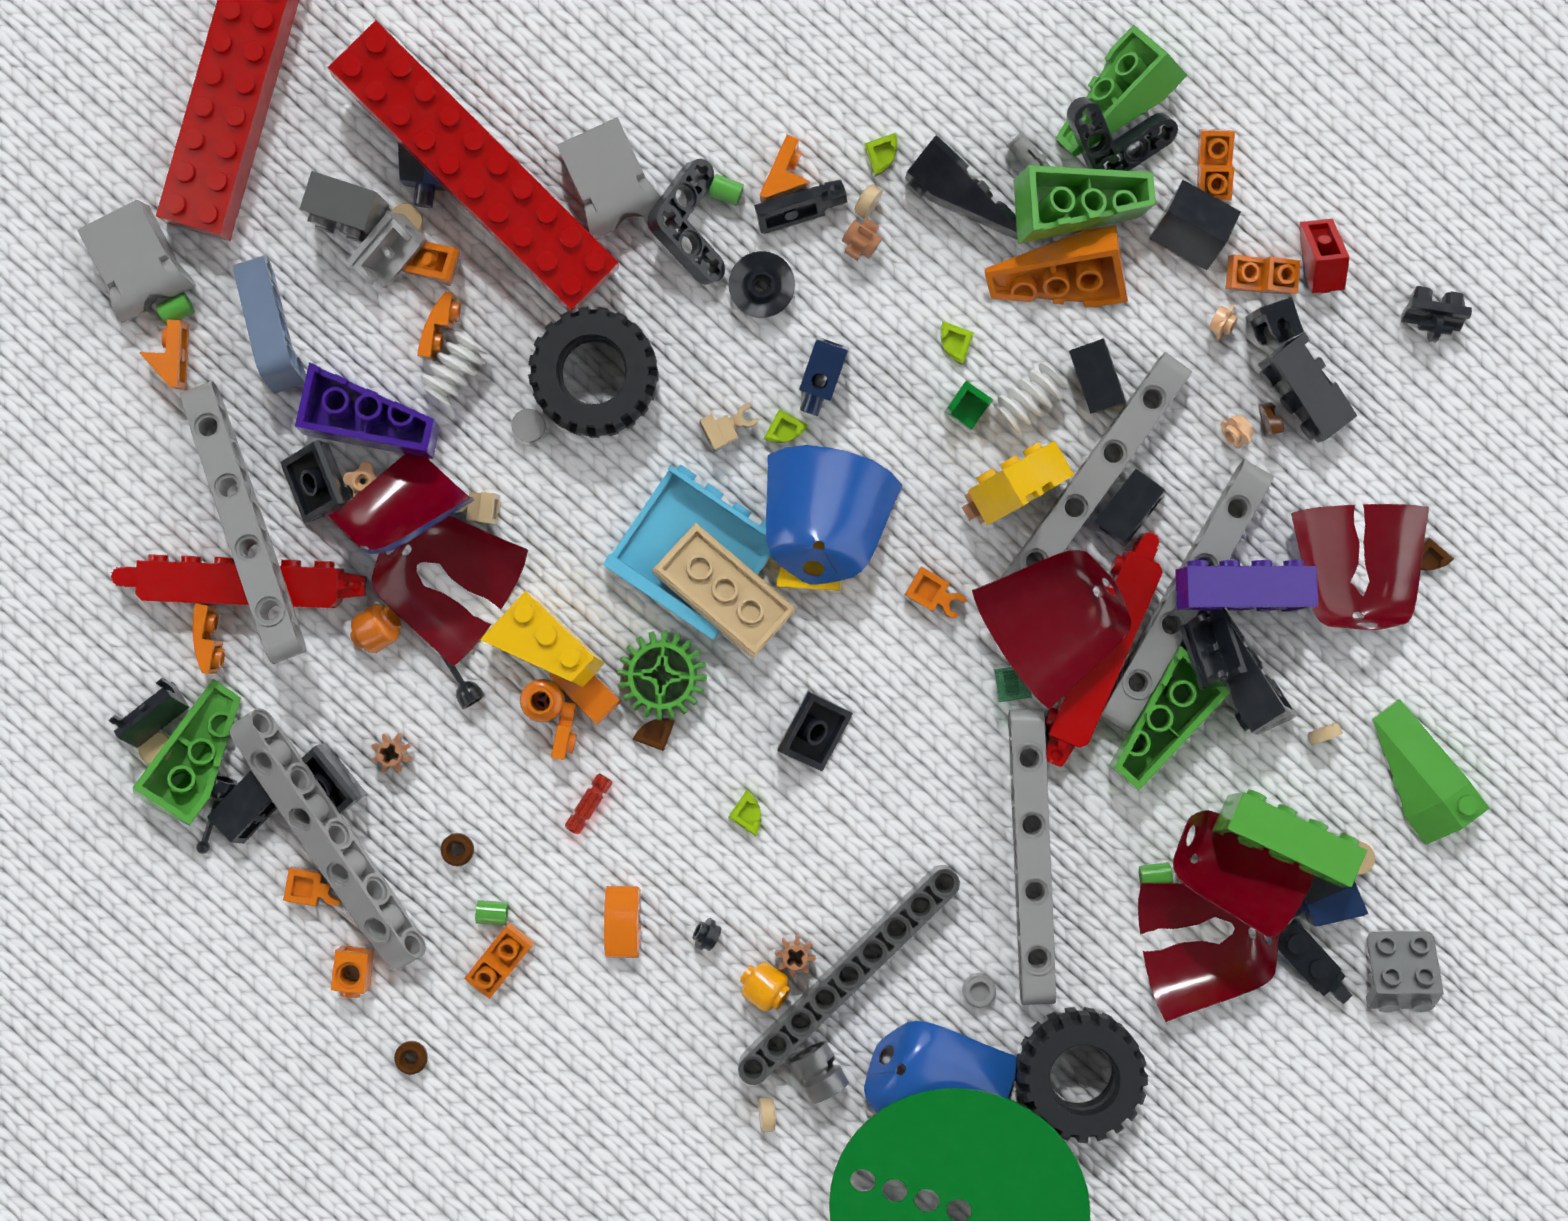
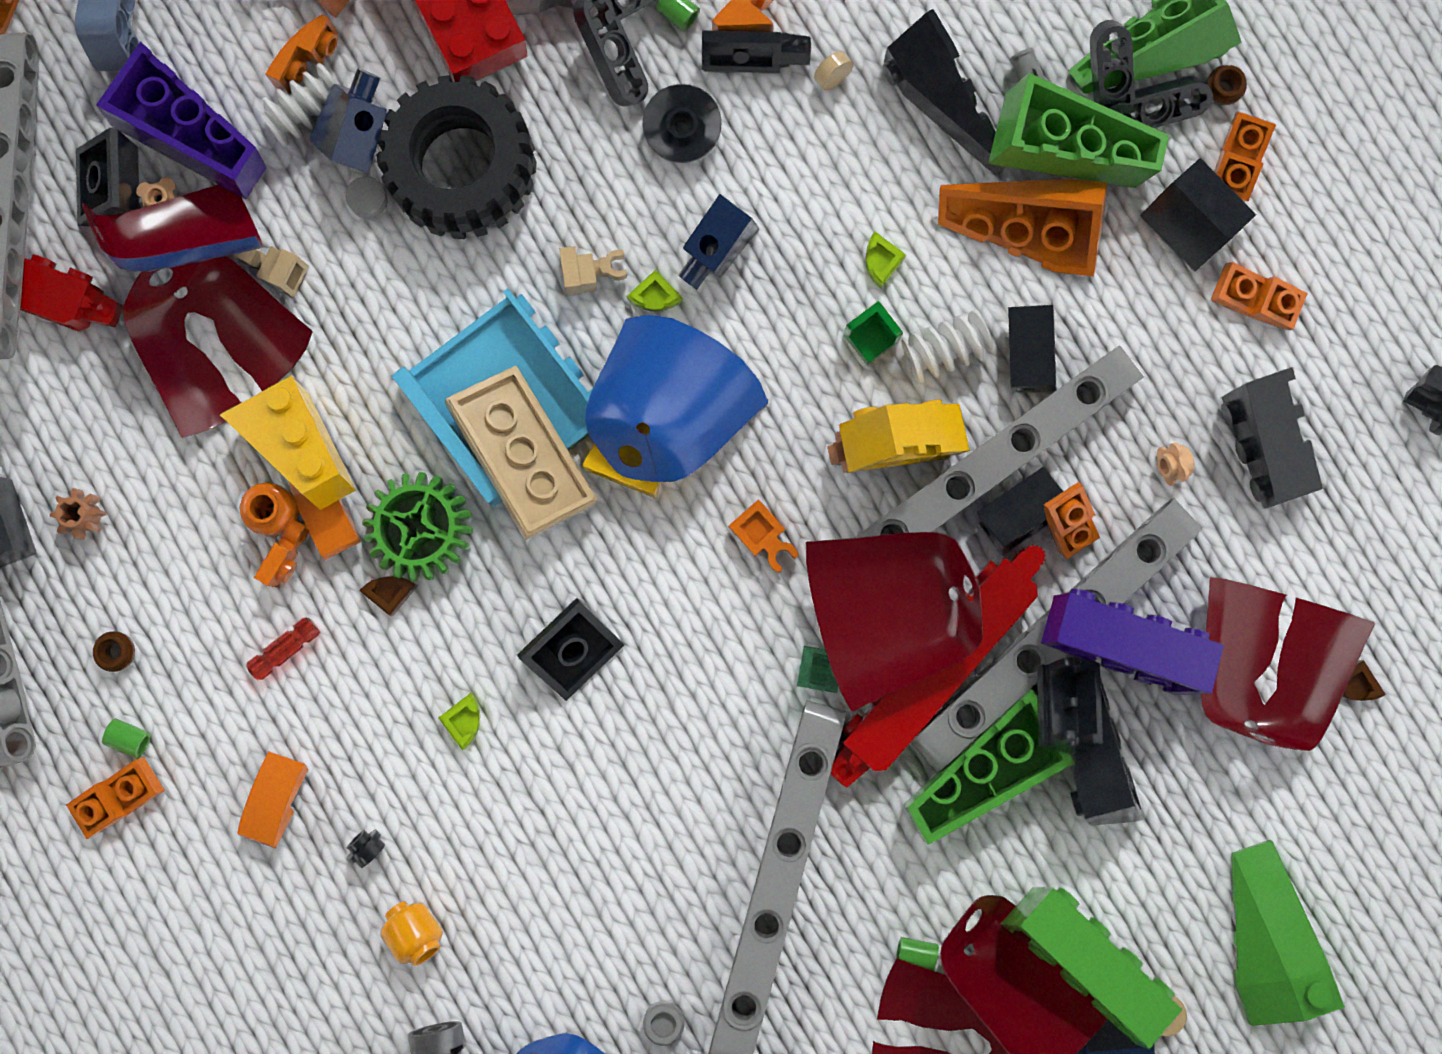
camera: 25 degrees right, 5 degrees down
(375, 628) = (110, 366): orange head -> none
(467, 692) = (189, 475): black hinge -> none
(501, 375) = (351, 123): none -> dark blue torso
(793, 964) = (462, 896): nougat gear -> none
(841, 989) = (498, 964): dark grey beam -> none
(861, 239) = (812, 108): nougat gear -> none
(881, 153) = (867, 24): lime tile -> none
(1170, 505) = (1071, 520): none -> orange slope
(1190, 101) = (1234, 77): none -> reddish brown plate
(1223, 321) = (1197, 333): light nougat plate -> none
(1271, 424) = (1217, 468): reddish brown tile -> none
(1279, 318) = (1263, 344): black hinge -> none
(1323, 256) = (1336, 297): red slope -> none
(1324, 733) = (1170, 851): tan tile -> none

